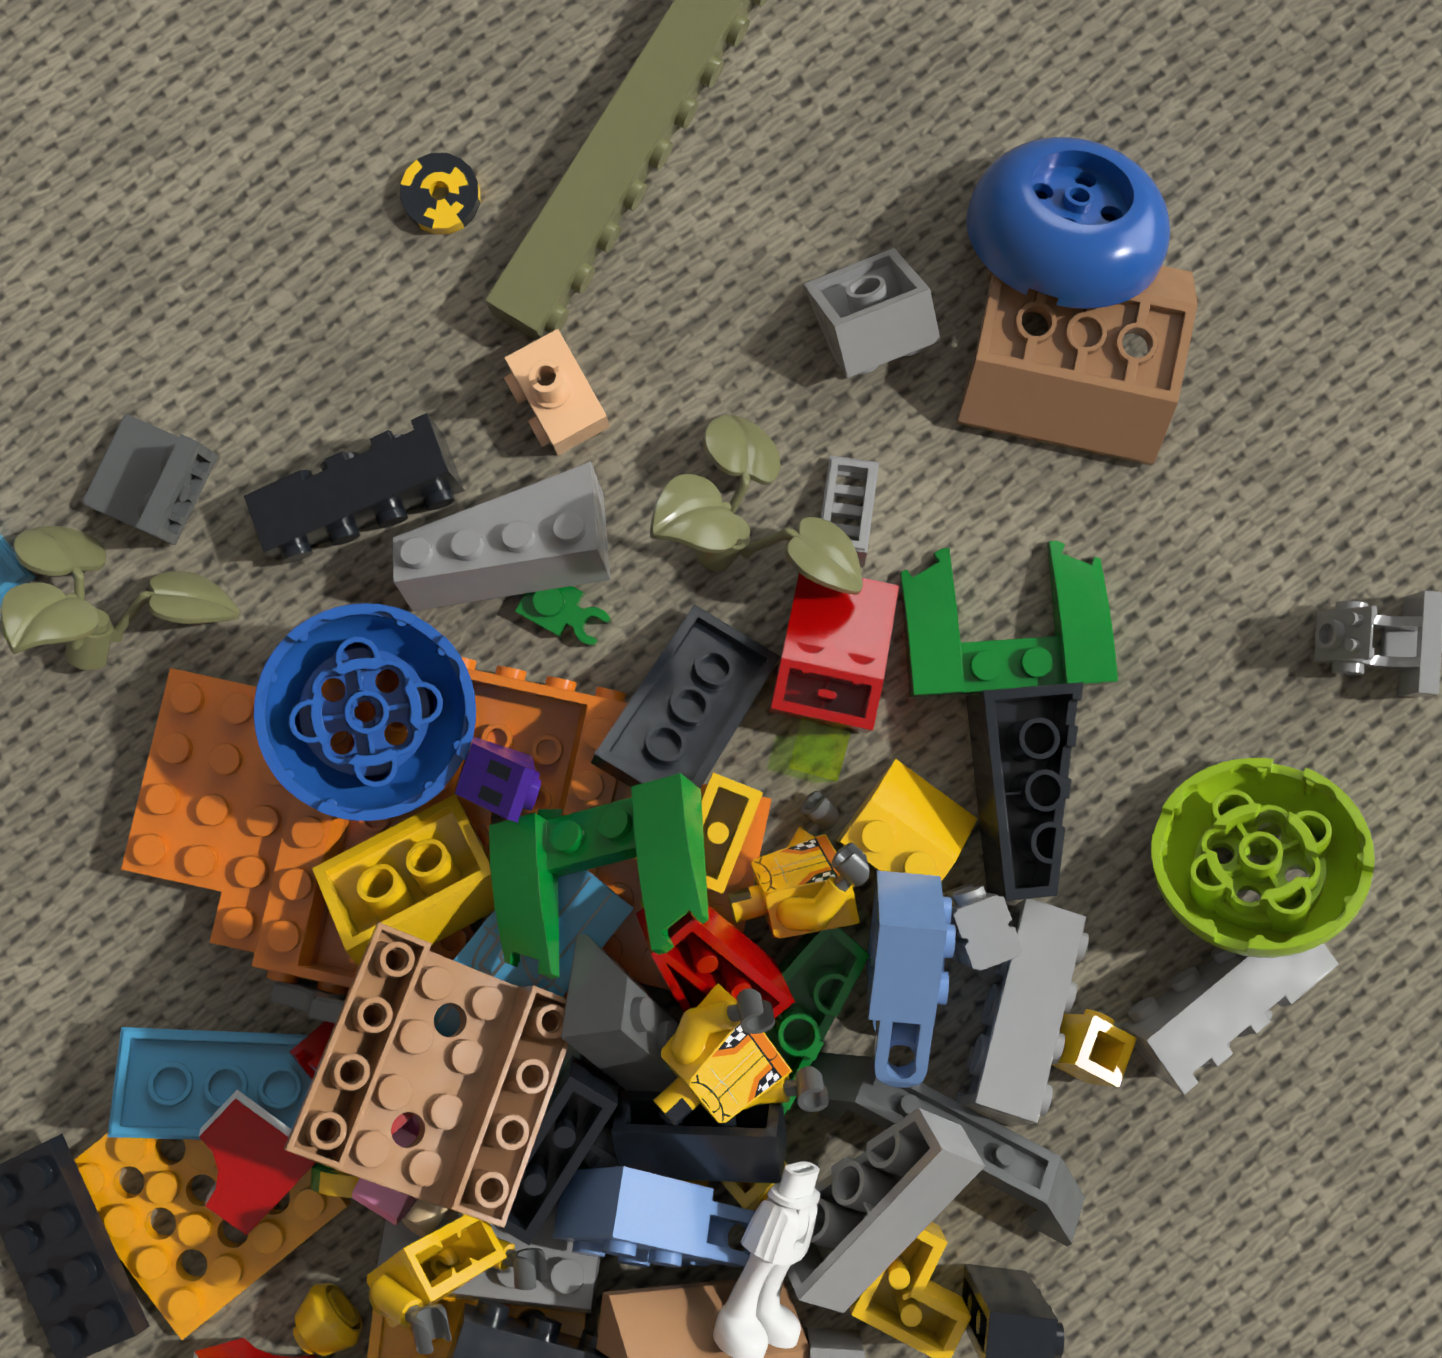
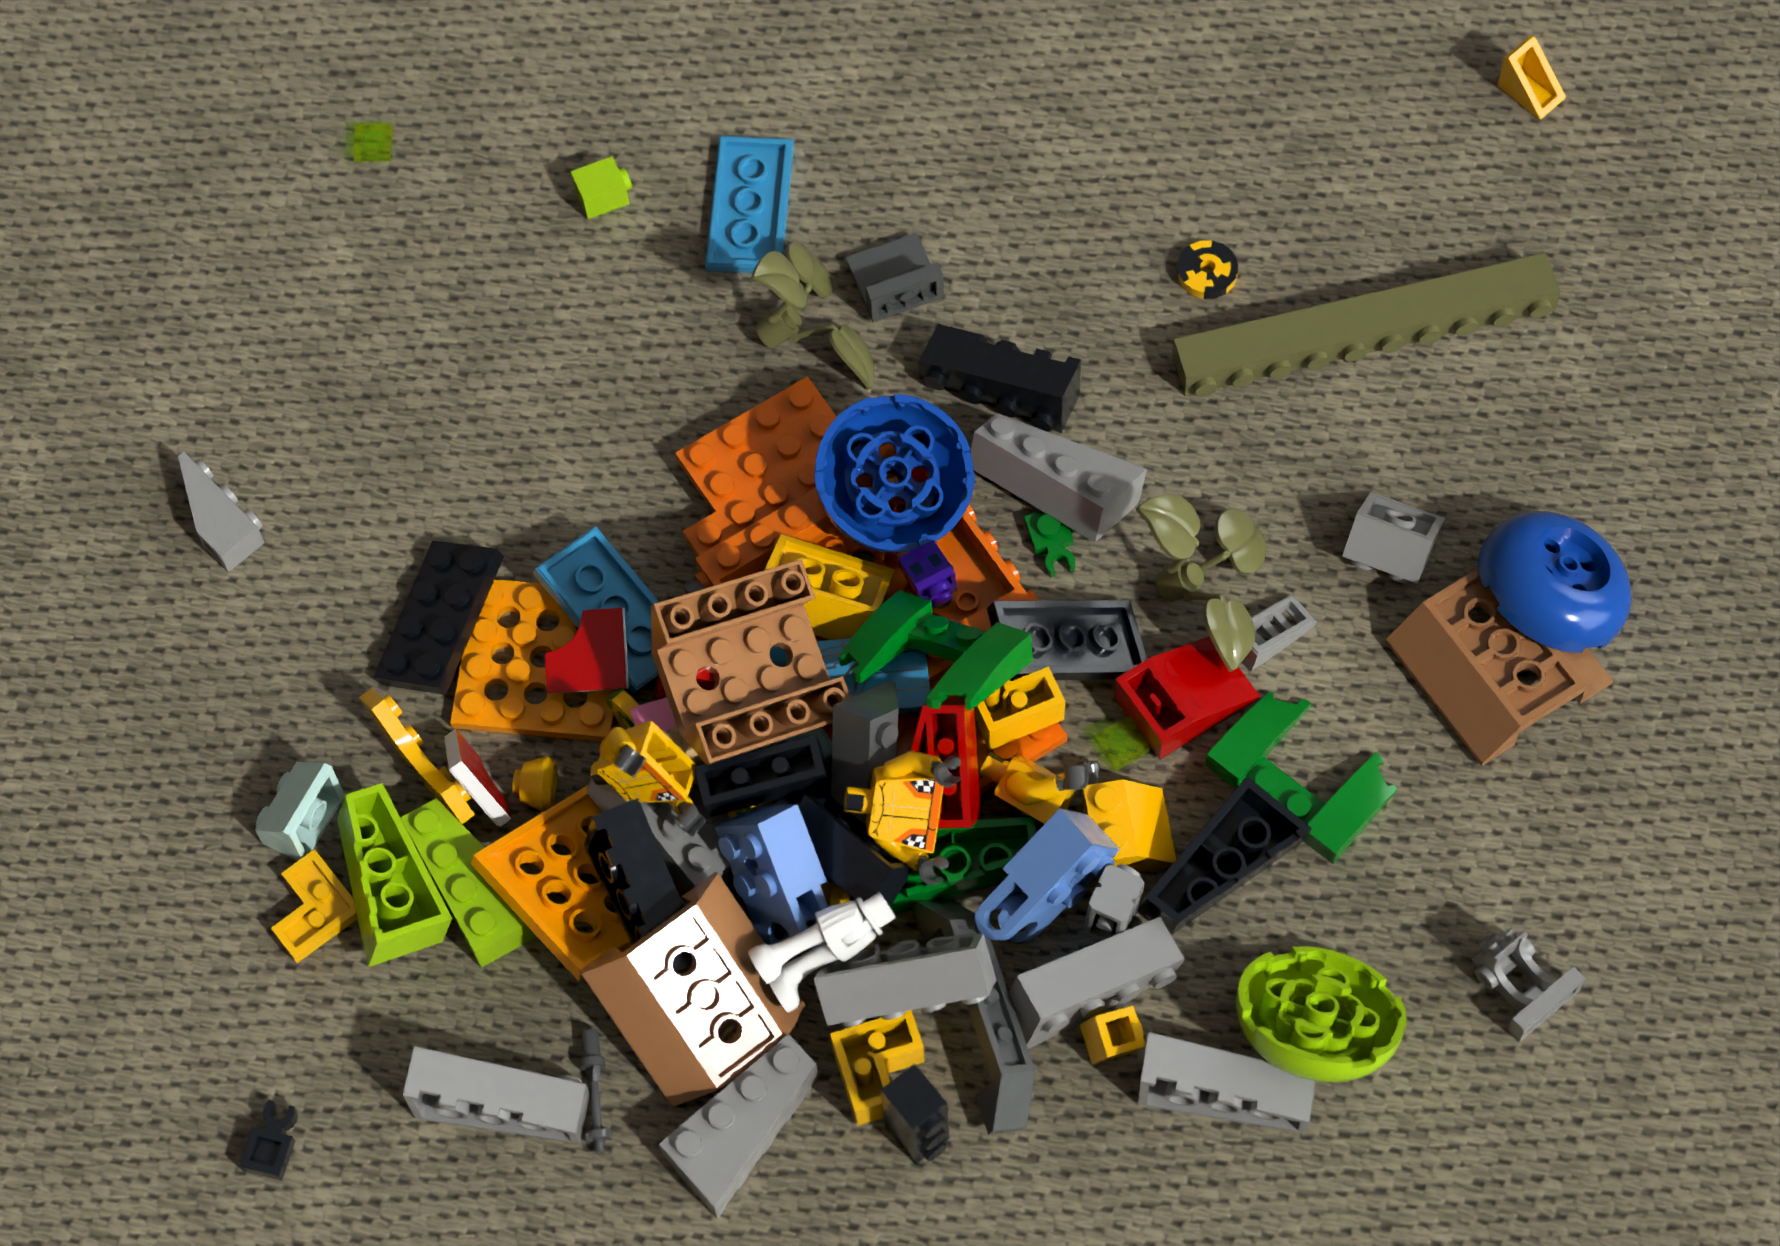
camera: 50 degrees right, 20 degrees down
(557, 393) = (1165, 423): light nougat brick -> none

